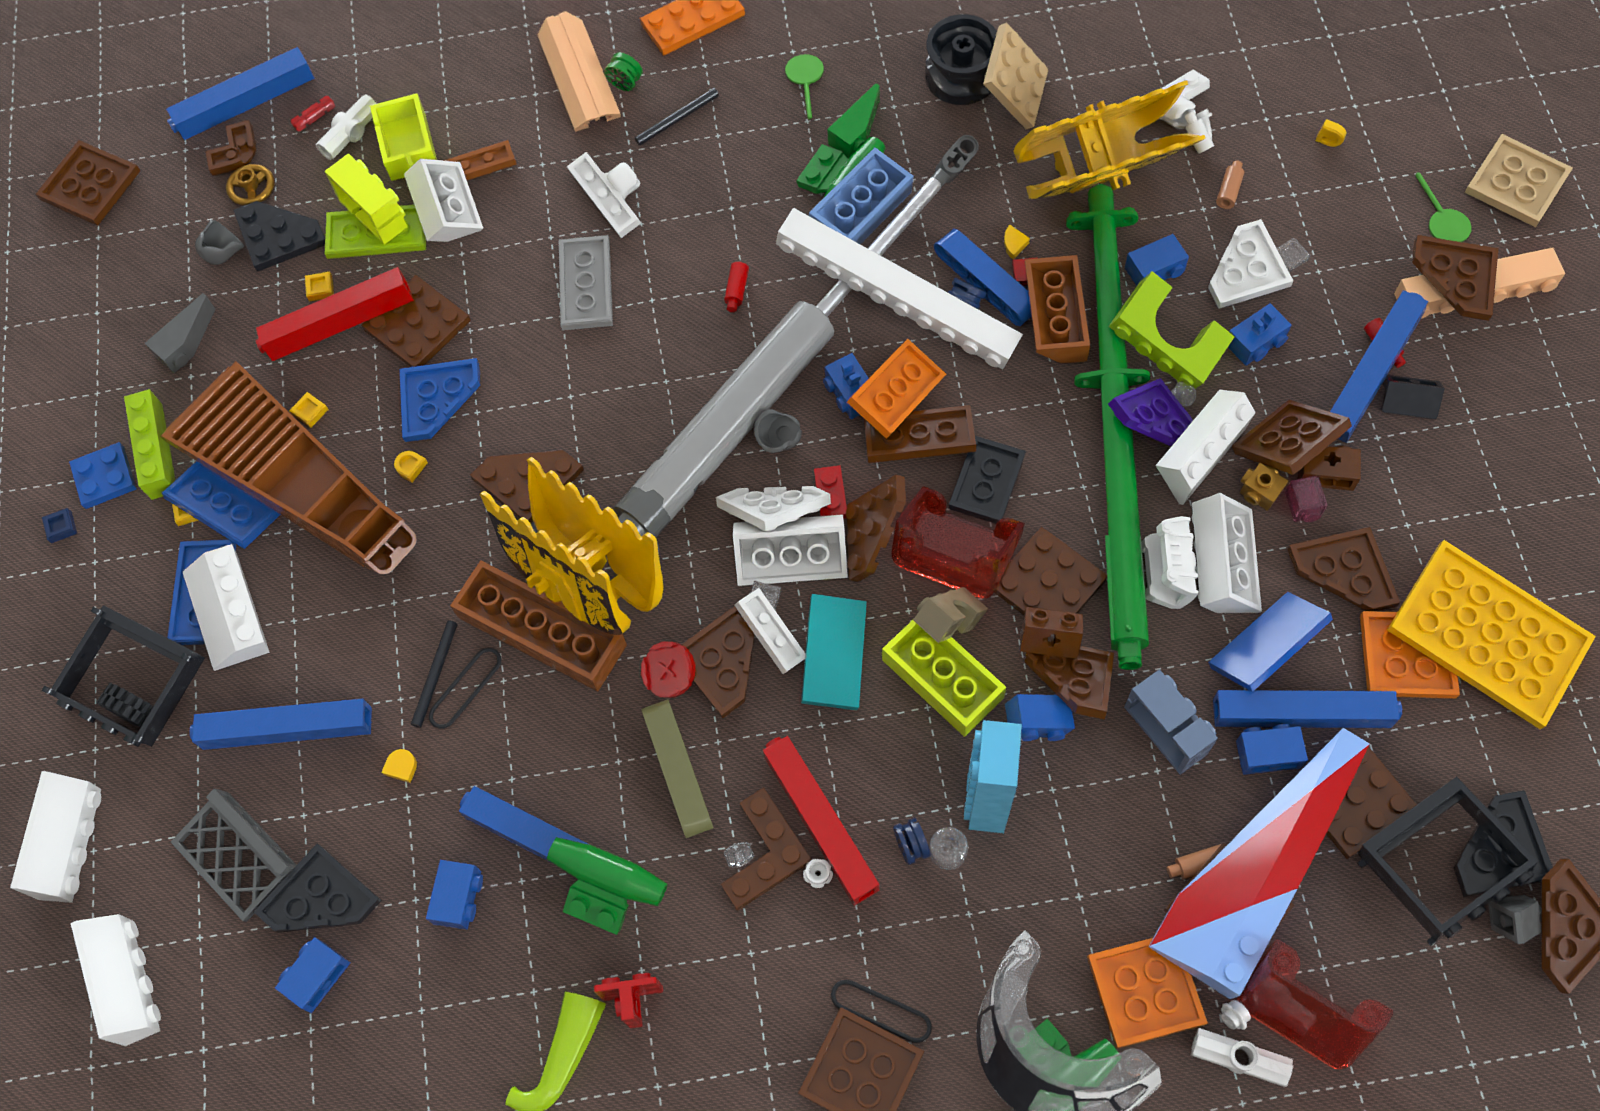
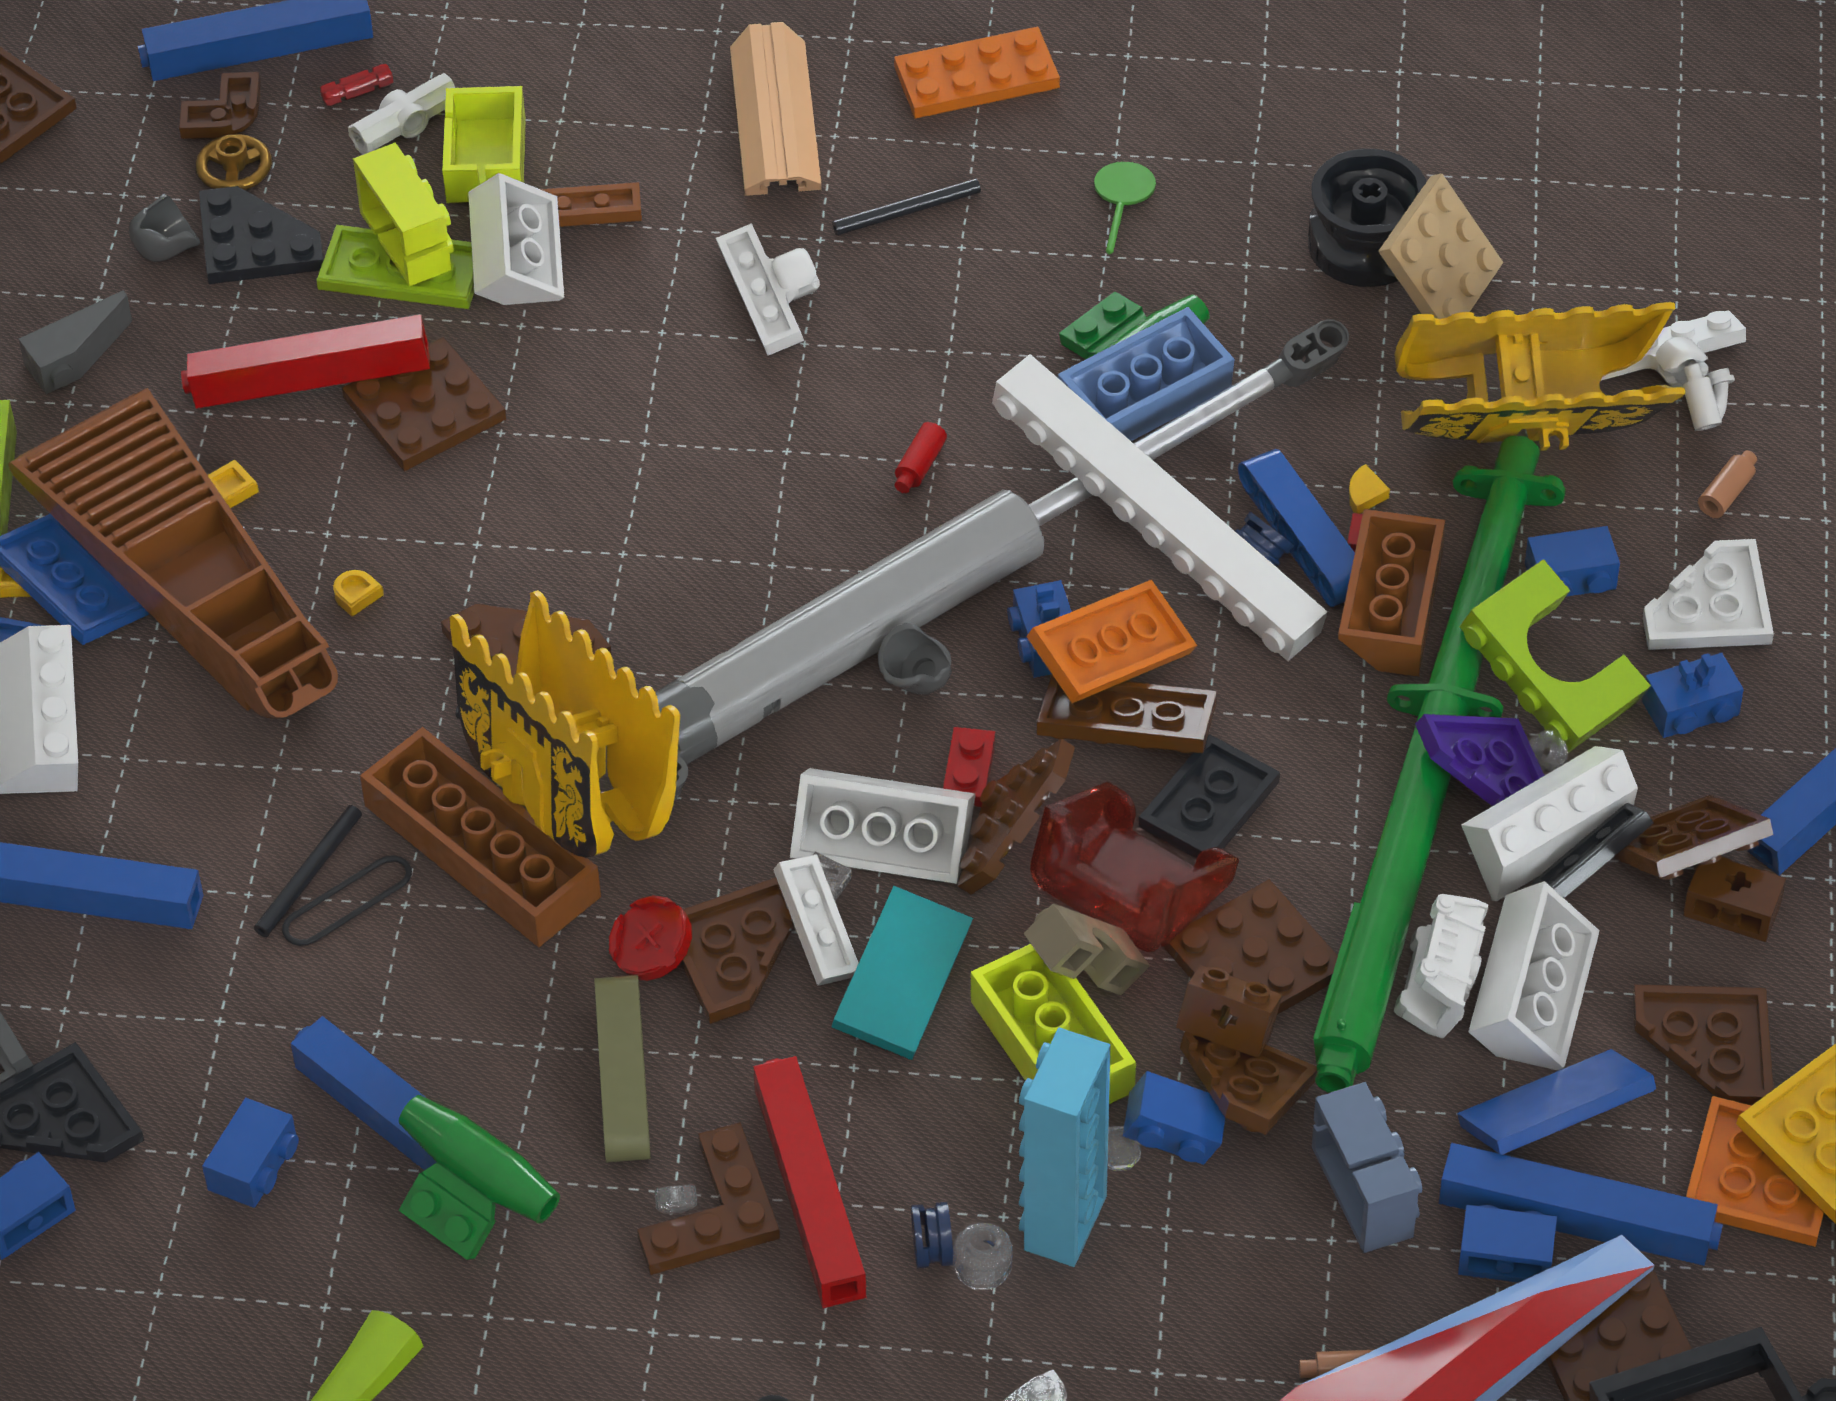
camera: 10 degrees right, 15 degrees down
(319, 286) = (294, 320): yellow tile -> none
(400, 765) = (222, 976): yellow tile -> none
(434, 394) = (421, 503): blue plate -> none
(585, 282) = (694, 404): light grey tile -> none
(623, 70) = (845, 125): green wheel -> none
(628, 995) = (460, 1325): red bracket -> none
(773, 505) = (877, 758): white plate -> none
(818, 865) = (781, 1239): white plate -> none
(855, 124) = (1177, 270): green slope -> none
(1237, 460) = (1596, 849): none -> black tile
(1262, 486) = (1621, 897): pearl gold brick -> none
(1293, 254) = (1789, 601): clear tile -> none
(1306, 499) = (1683, 931): clear pink brick -> none

